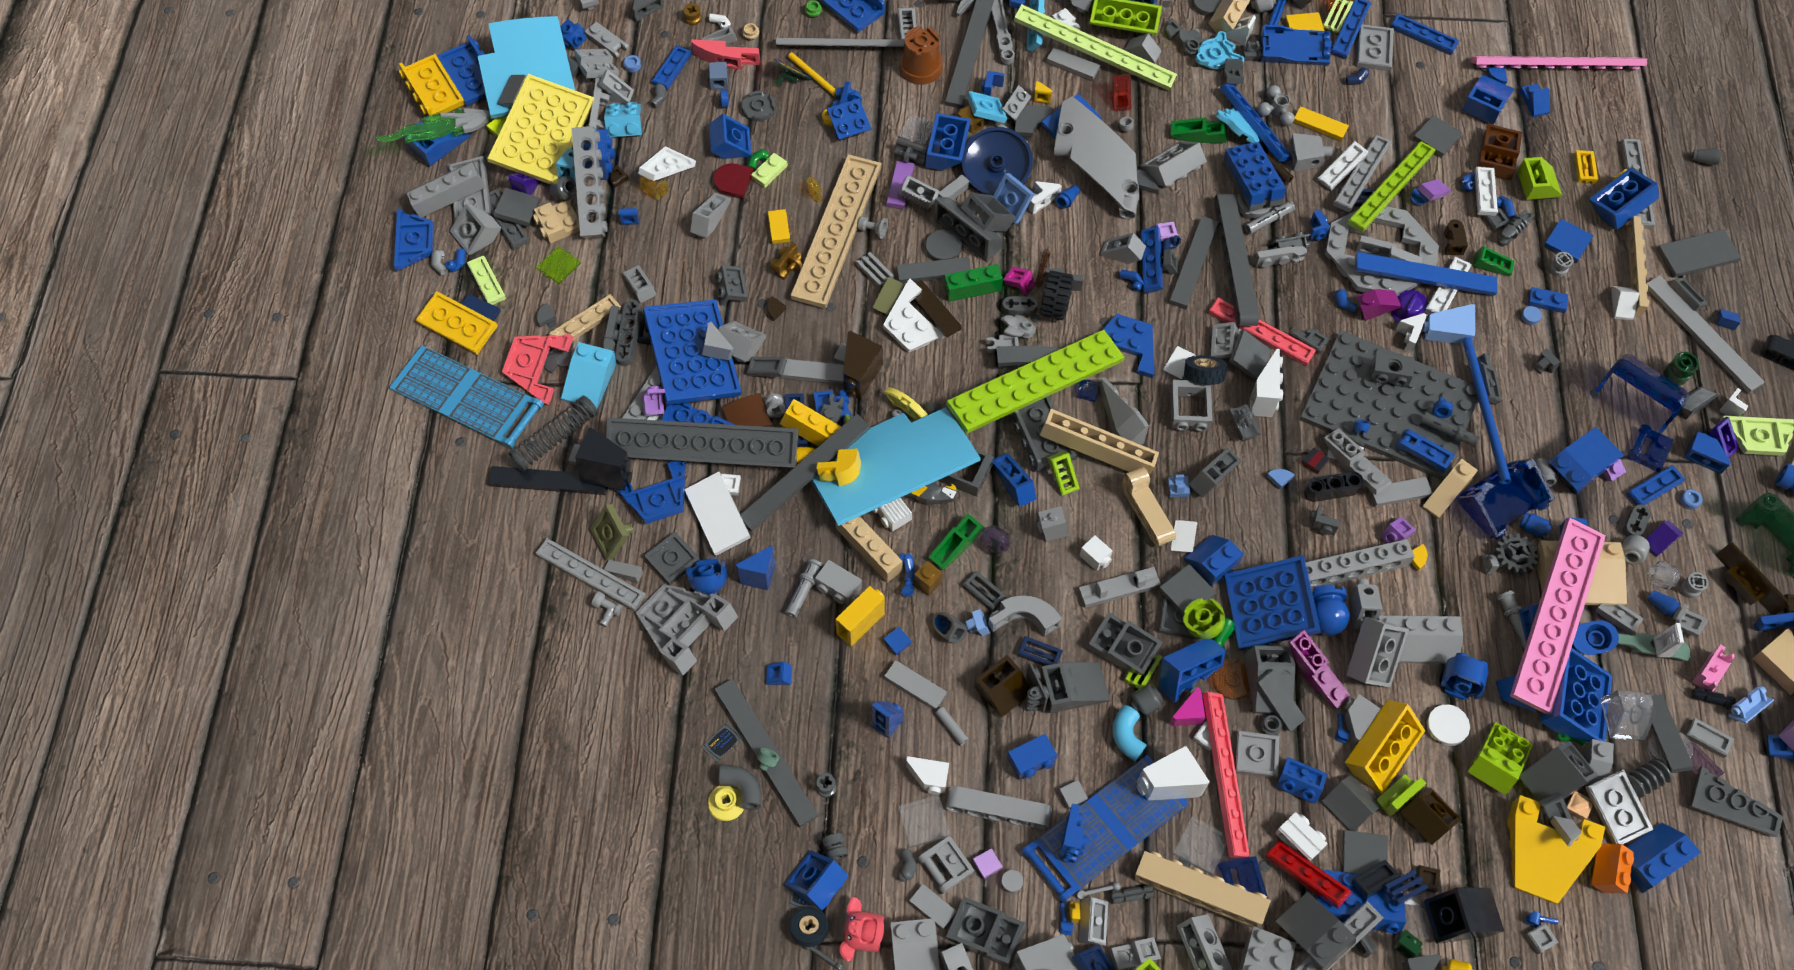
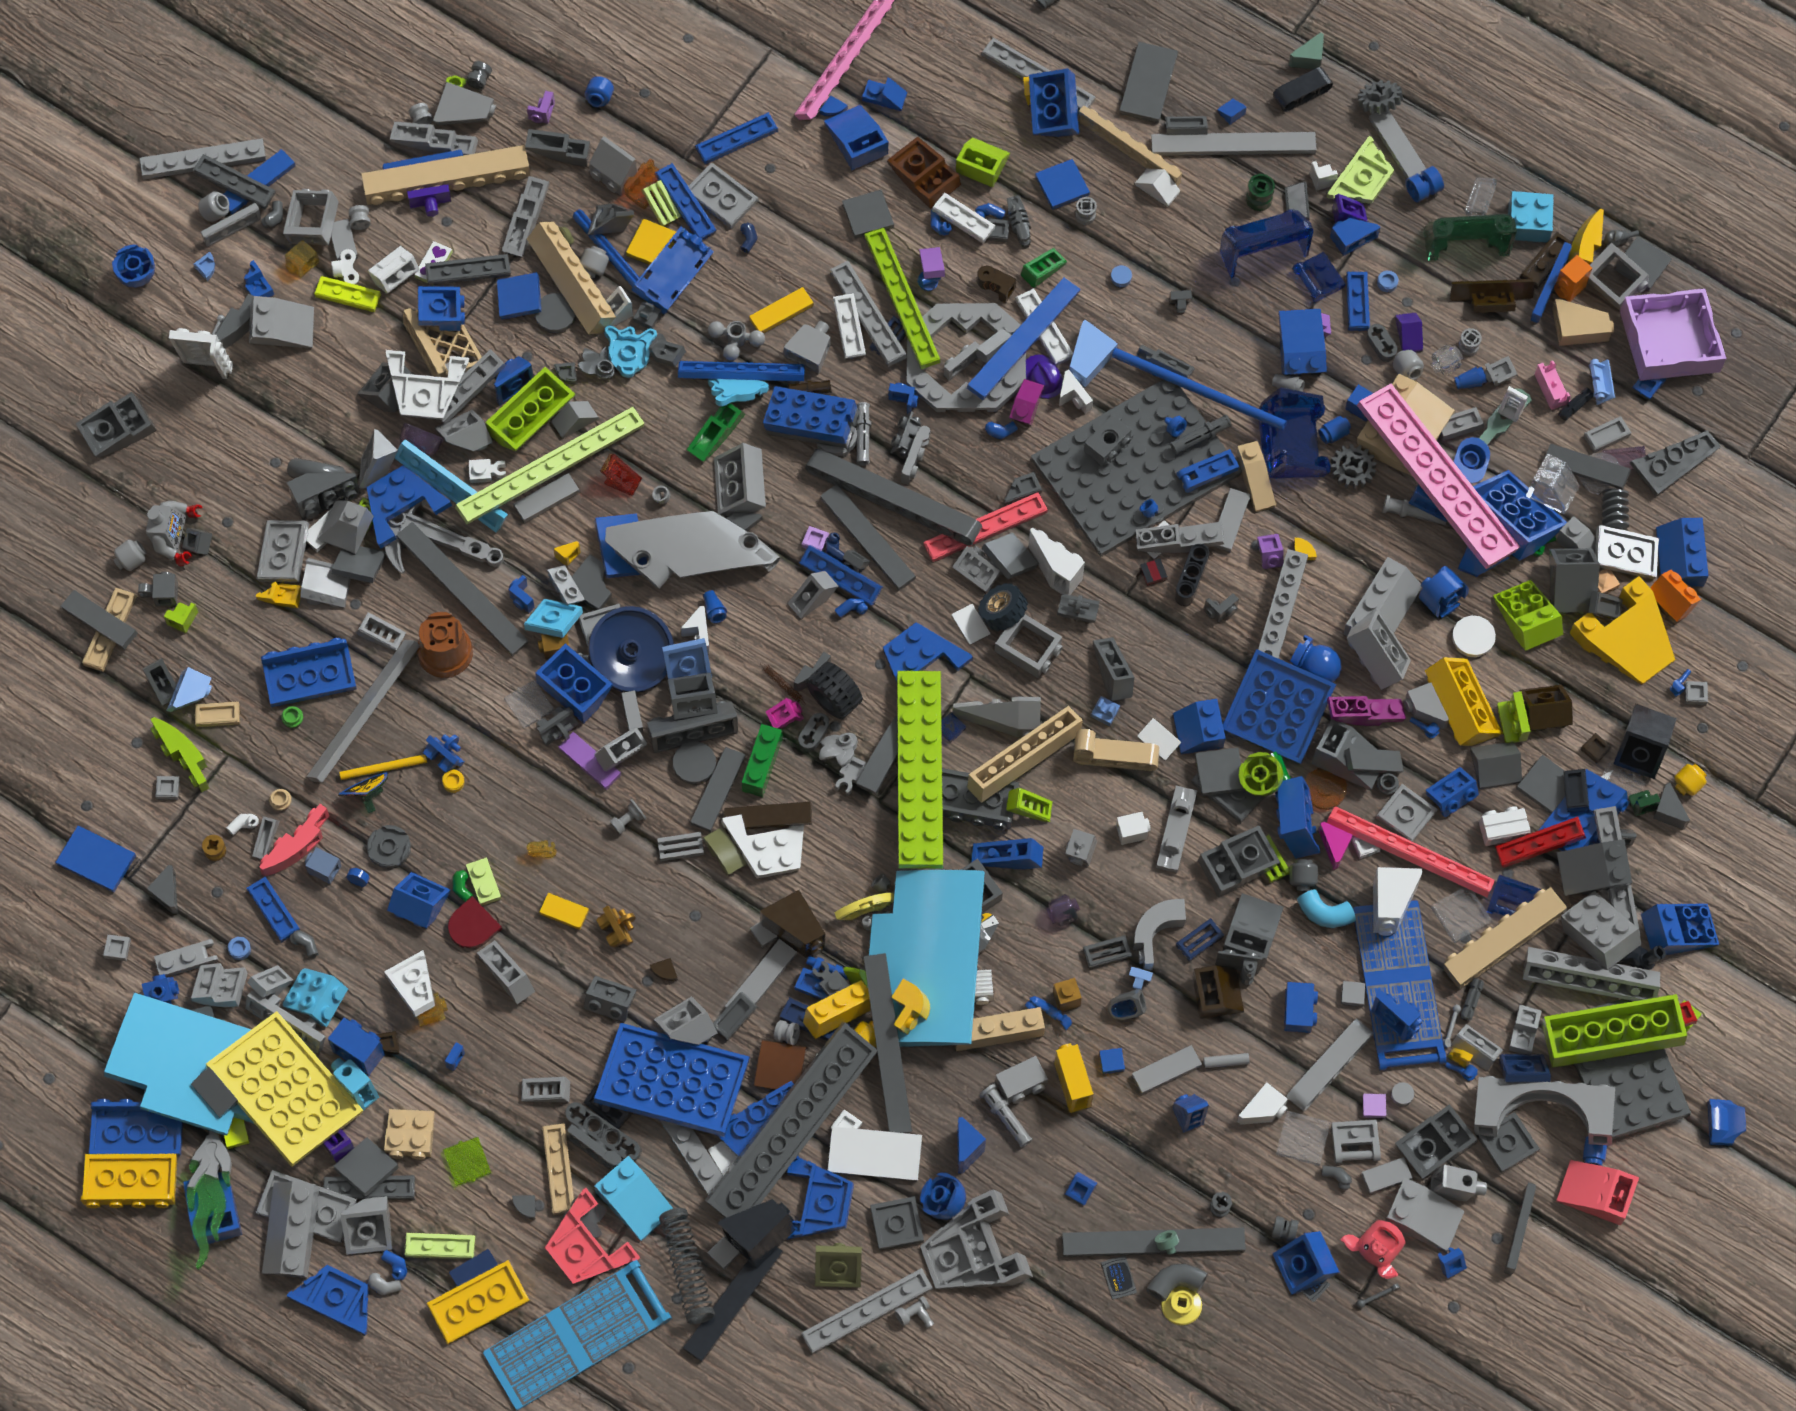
camera: 60 degrees left, 5 degrees up
(563, 188) = (376, 1105): dark grey head -> none
(580, 137) = (349, 1049): light grey brick -> none
(624, 570) = (883, 1276): light grey piece -> none
(653, 401) = (711, 1148): medium lavender bracket -> none
(716, 344) = (682, 1050): light grey slope -> none
(814, 935) = (1350, 1303): black bush -> none
(836, 231) = (608, 856): tan plate -> none
(849, 119) = (477, 764): blue hinge -> none
(956, 541) = (1043, 947): green slope -> none
(1280, 477) = (1151, 614): medium blue tile -> none
(1365, 598) = (1325, 627): light grey torso -> none
(1415, 881) = (1596, 758): dark blue tile -> none
(1490, 564) = (1347, 494): light grey tile -> none
(1548, 300) = (1113, 249): blue plate -> none
(1566, 829) = (1625, 608): light grey tile -> none
(1581, 155) = (989, 110): yellow tile -> none

